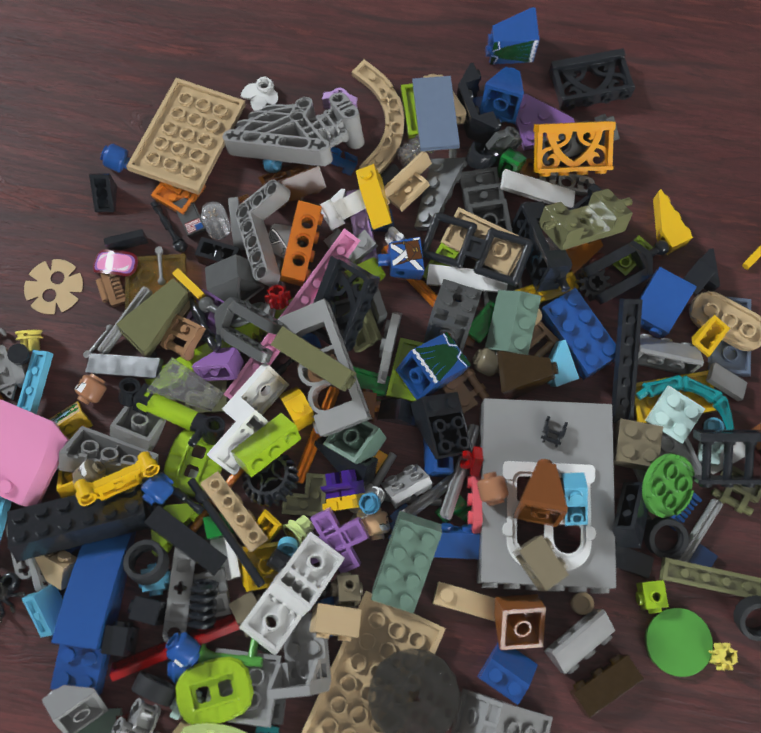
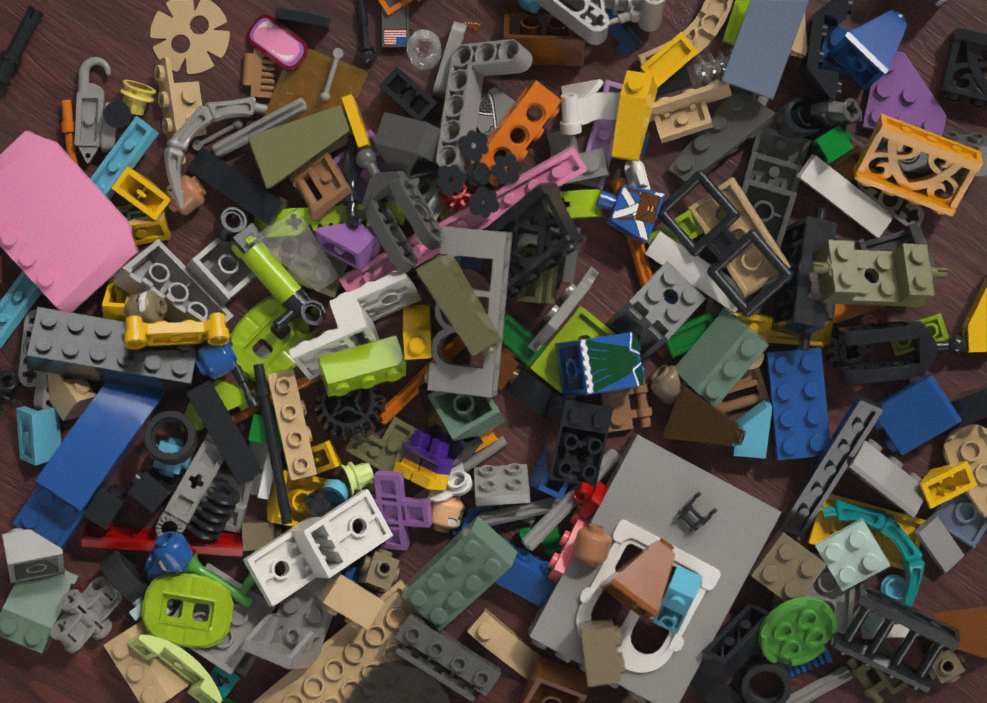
camera: 30 degrees right, 15 degrees up
(56, 399) = (141, 192): none -> yellow slope
(65, 335) = (175, 99): none -> tan bracket
(81, 329) = (198, 120): none -> light grey animal
(287, 273) = (478, 174): none -> black plant
(369, 503) = (448, 492): dark azure plate -> none
(382, 155) = (670, 59): none -> yellow tile
(429, 627) = (447, 652): none -> dark grey brick

